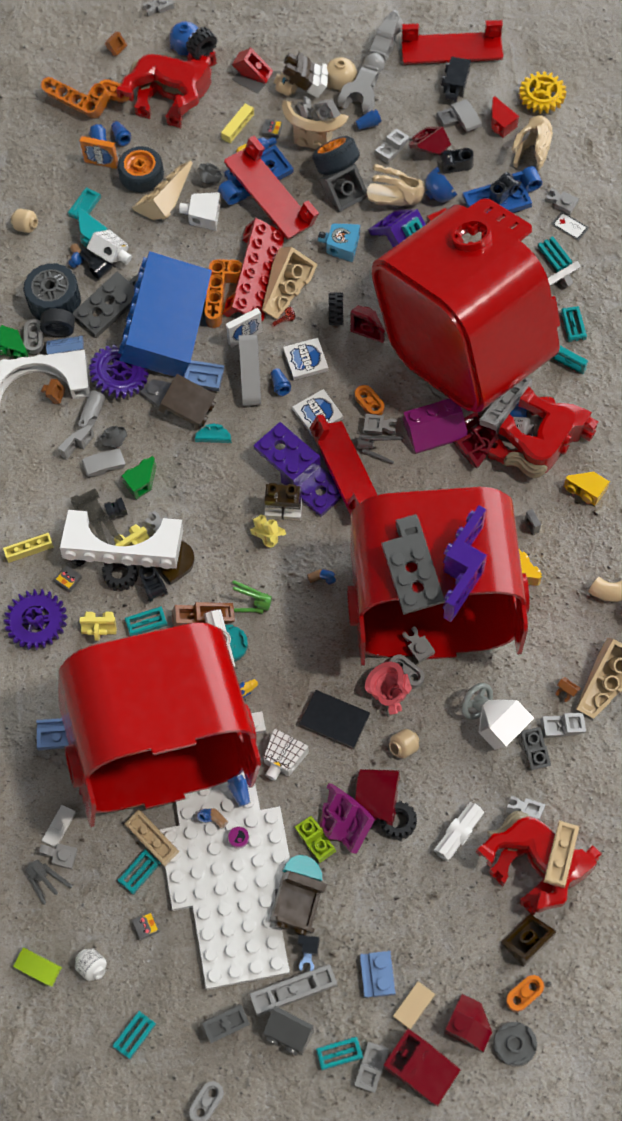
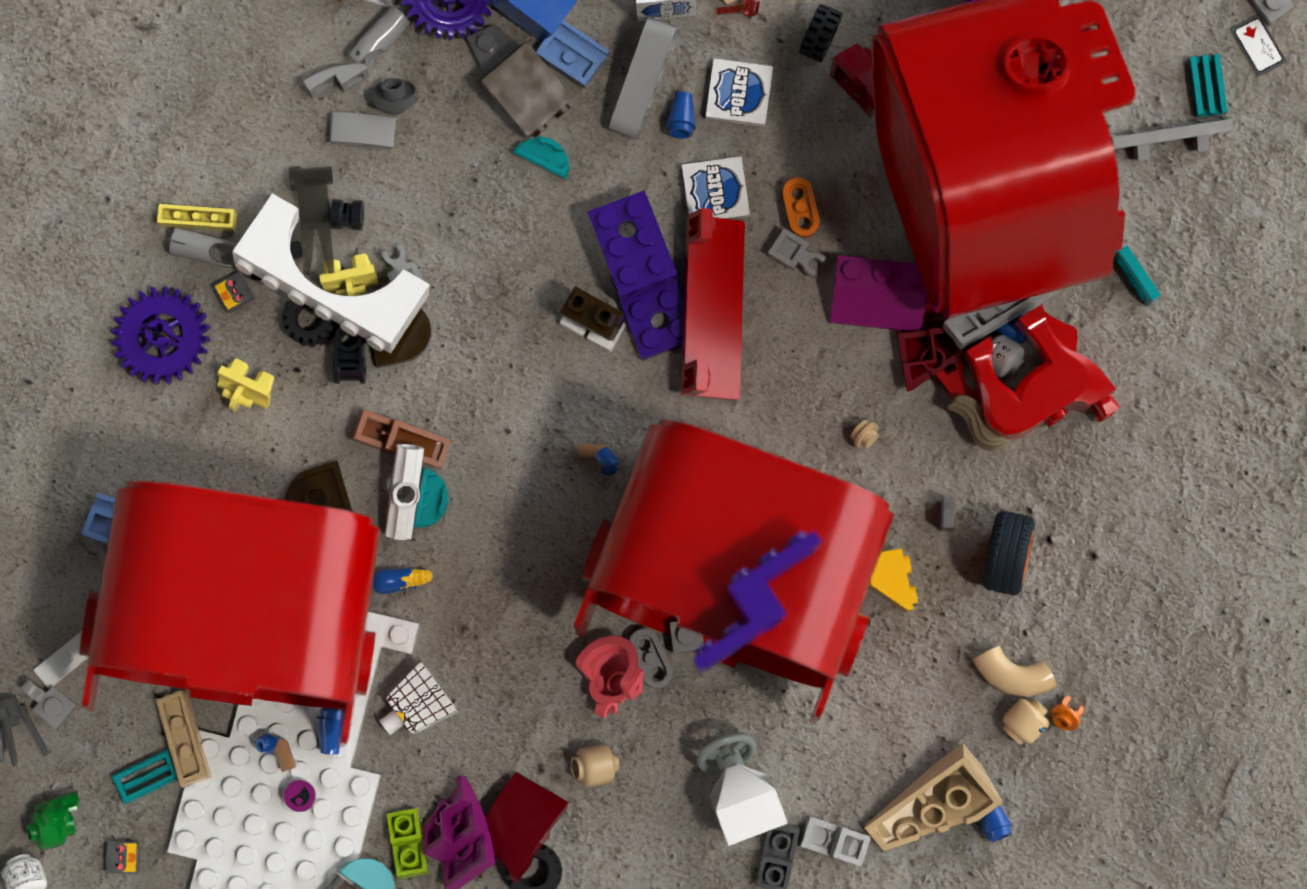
camera: 25 degrees right, 15 degrees up
(37, 561) = (197, 247): none -> light grey piece
(93, 921) = (53, 821): none -> green head
(140, 478) = (405, 182): green slope -> none
(154, 626) = (342, 412): teal tile -> none
(262, 600) = (494, 456): bright green plant -> none
(267, 530) = (549, 351): light yellow hips -> none
(334, 719) = (516, 682): black tile -> none
(366, 442) = (767, 272): dark grey plant -> none
(407, 549) = (697, 544): dark grey hinge -> none
(569, 687) = (869, 790): dark orange tile -> none
(576, 336) = (1169, 241): teal tile -> none
(578, 523) = (1008, 553): none -> black wheel
(587, 485) = (1058, 495): yellow slope -> none

